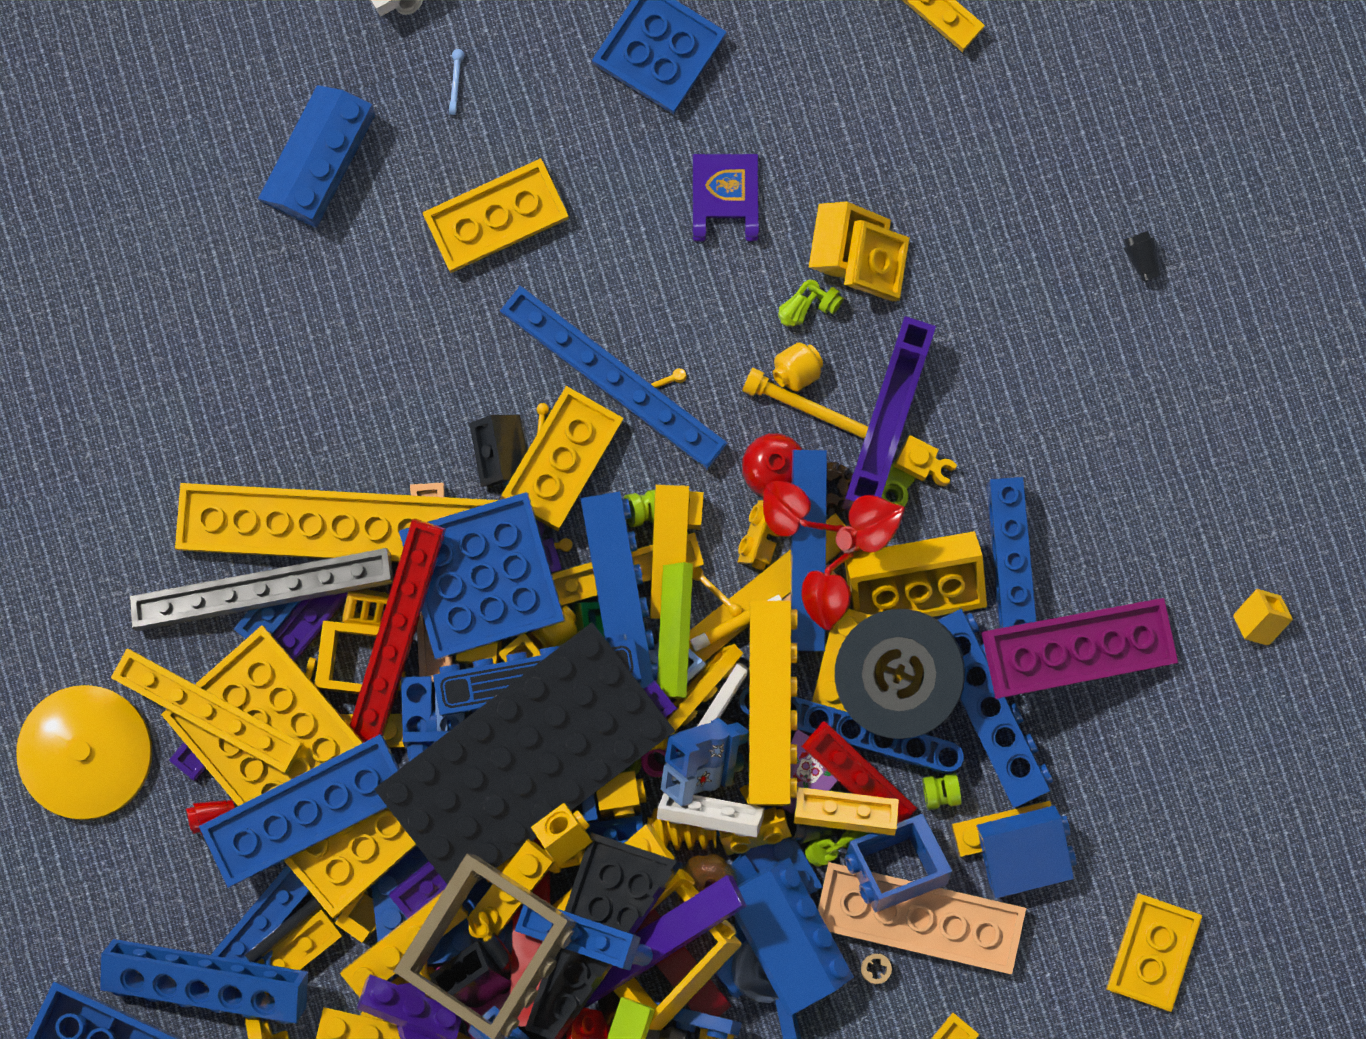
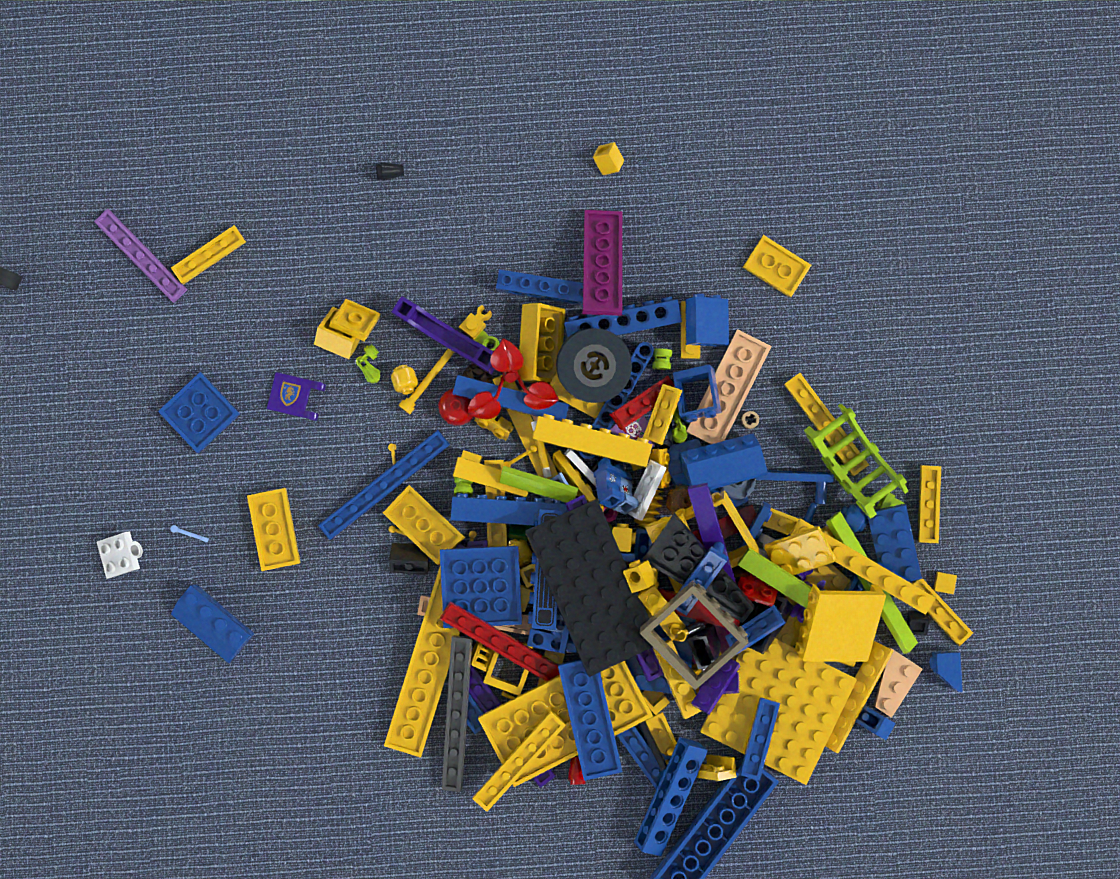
camera: 75 degrees left, 5 degrees up
(84, 752) = (523, 835): yellow dish -> none

